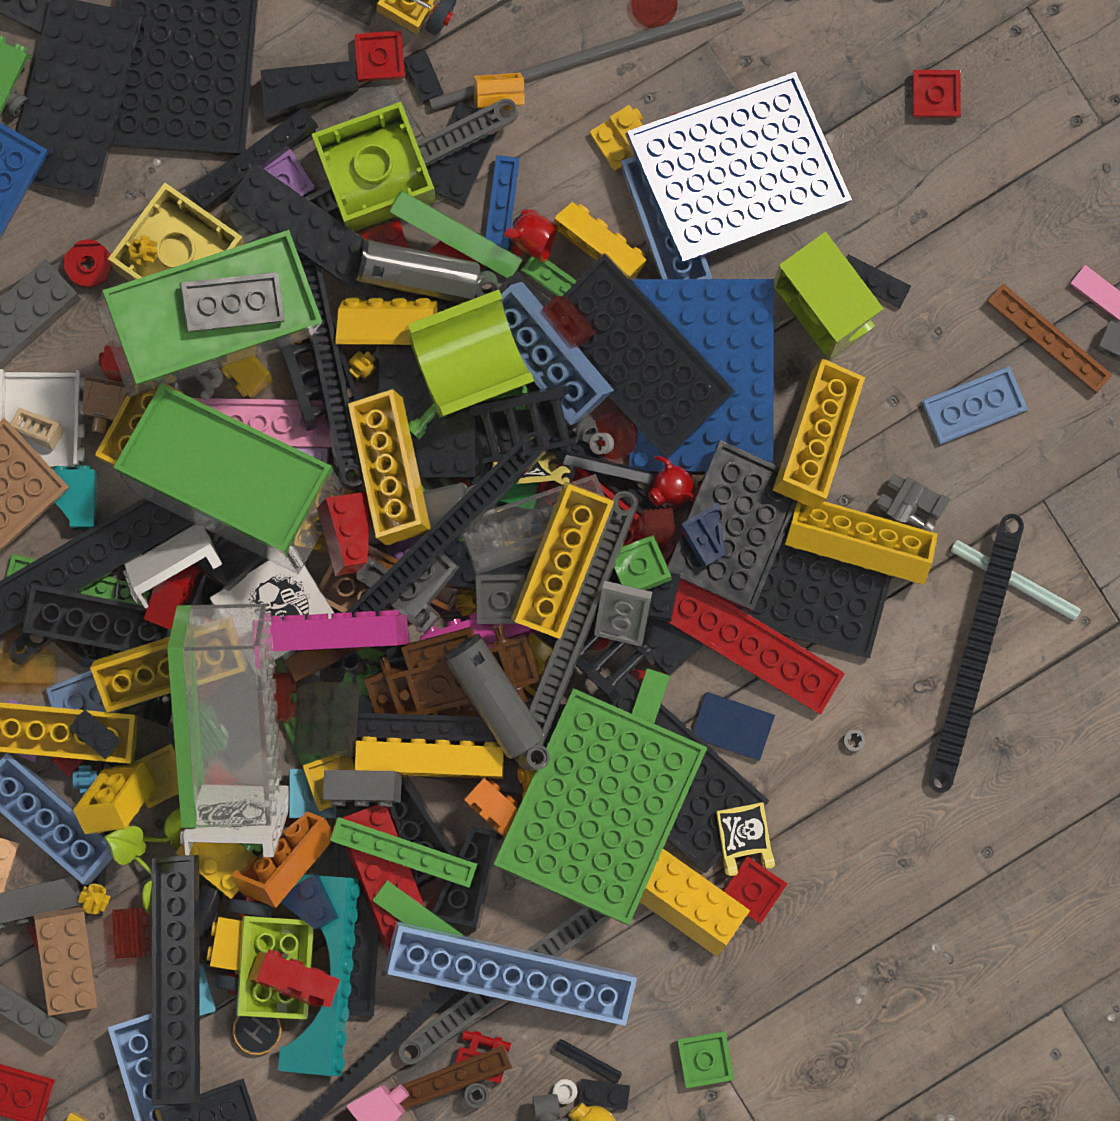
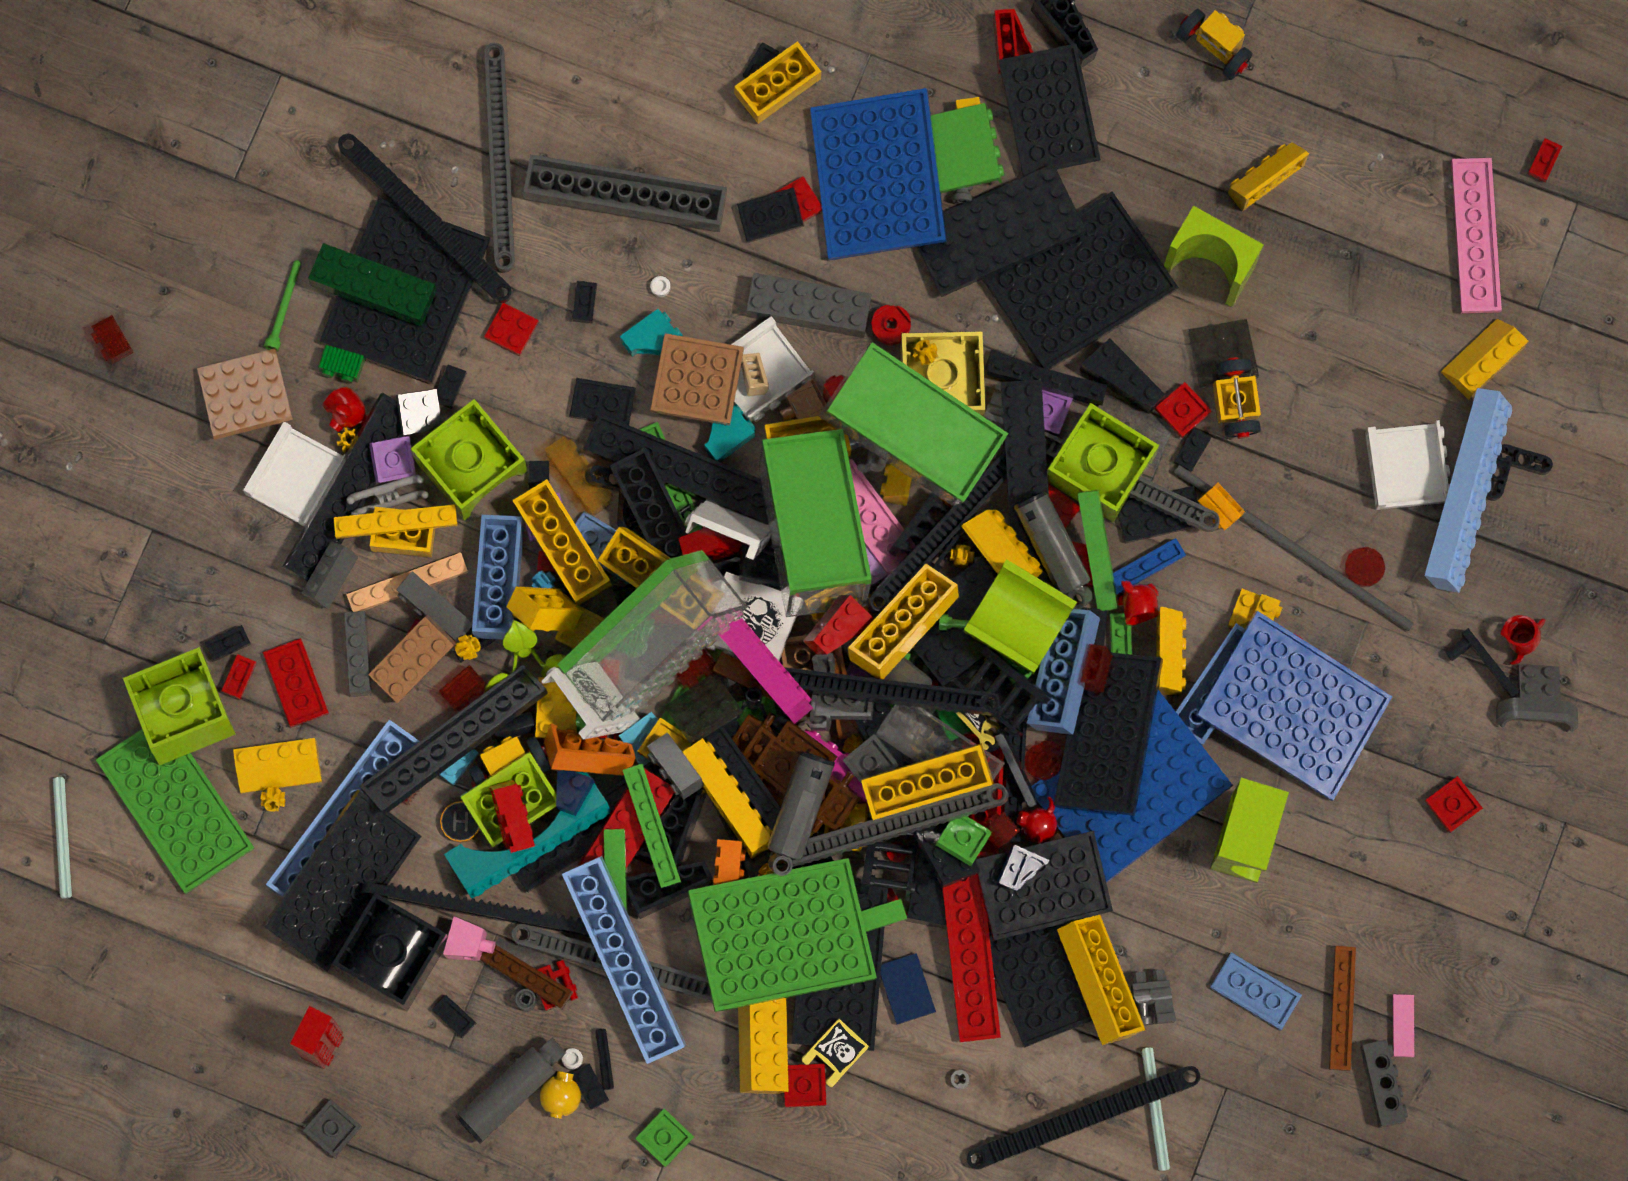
camera: 50 degrees right, 5 degrees down
(95, 734) = (577, 564): black plate -> none
(232, 302) = (930, 432): plate -> none
(586, 430) = (1032, 738): dark grey plate -> none
(609, 443) = (1032, 749): light grey bush -> none
(622, 613) = (922, 850): light grey plate -> none
(819, 434) = (1150, 895): yellow brick -> none
(880, 283) = (1289, 859): black plate -> none

